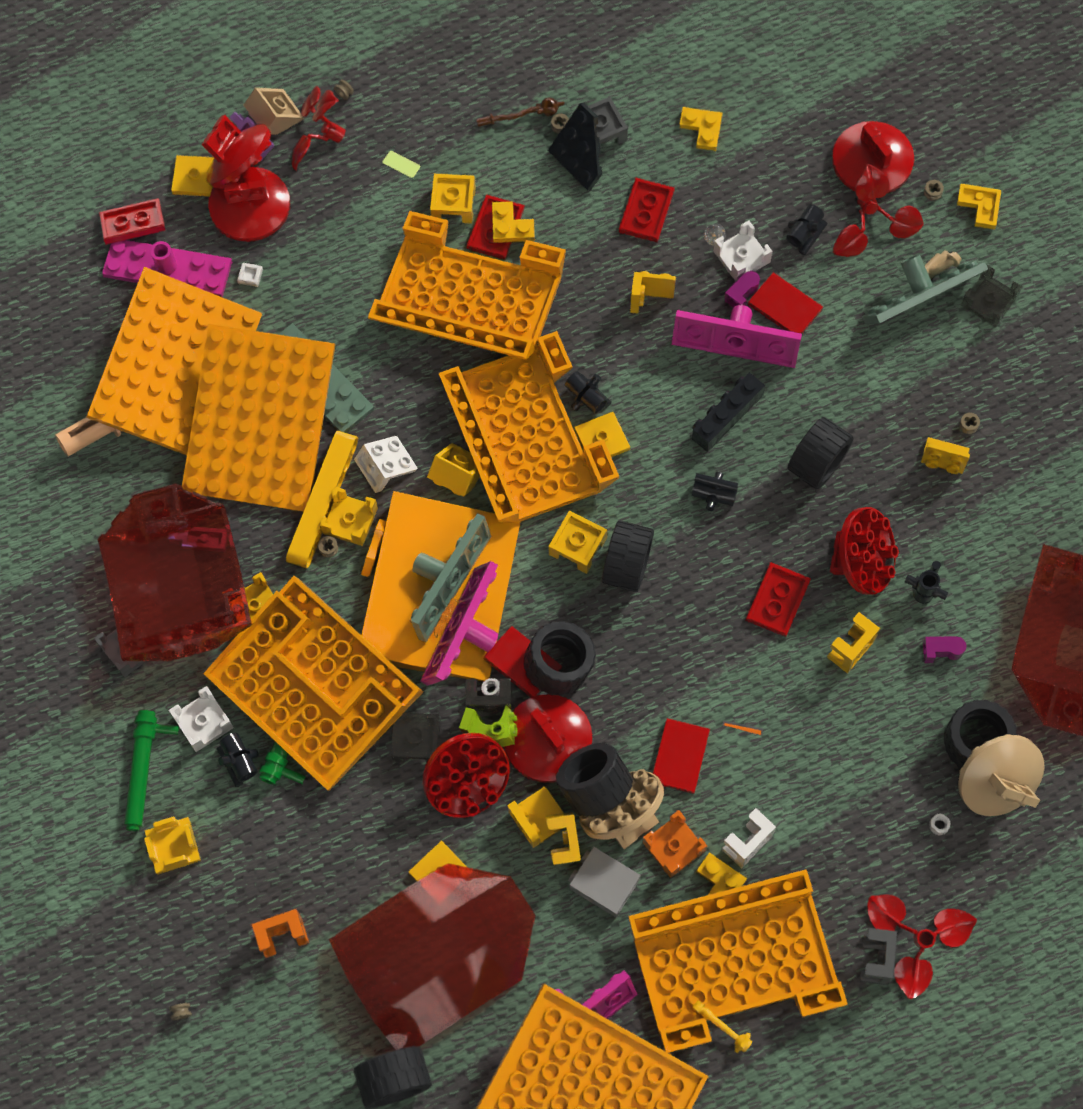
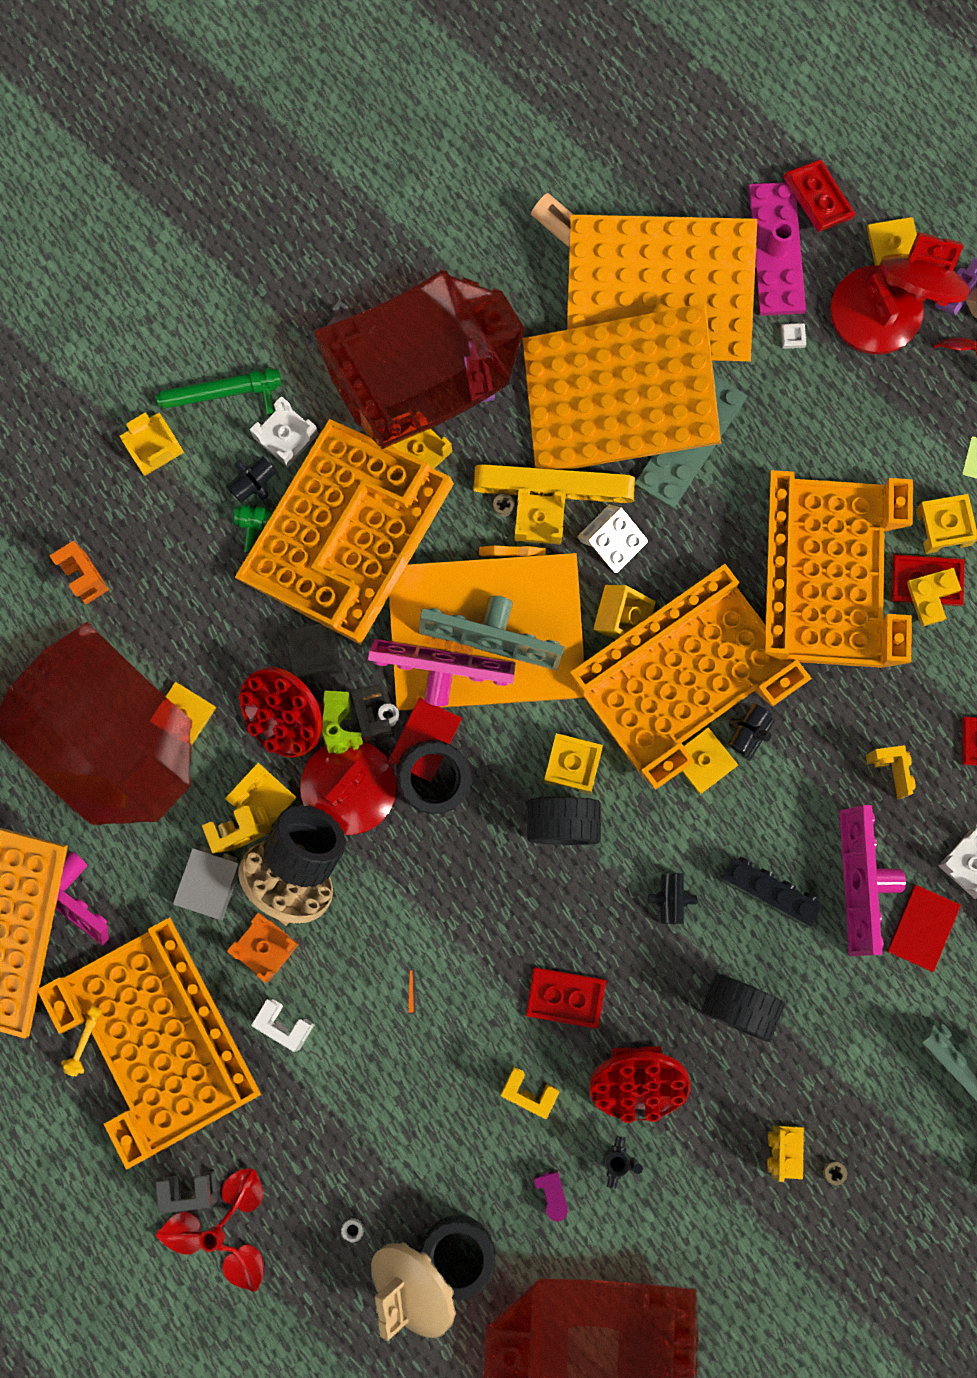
camera: 75 degrees right, 10 degrees up
(681, 755) = (363, 931): red tile -> none
(720, 874) = (241, 1010): yellow plate -> none
(742, 288) = (931, 875): magenta leg -> none

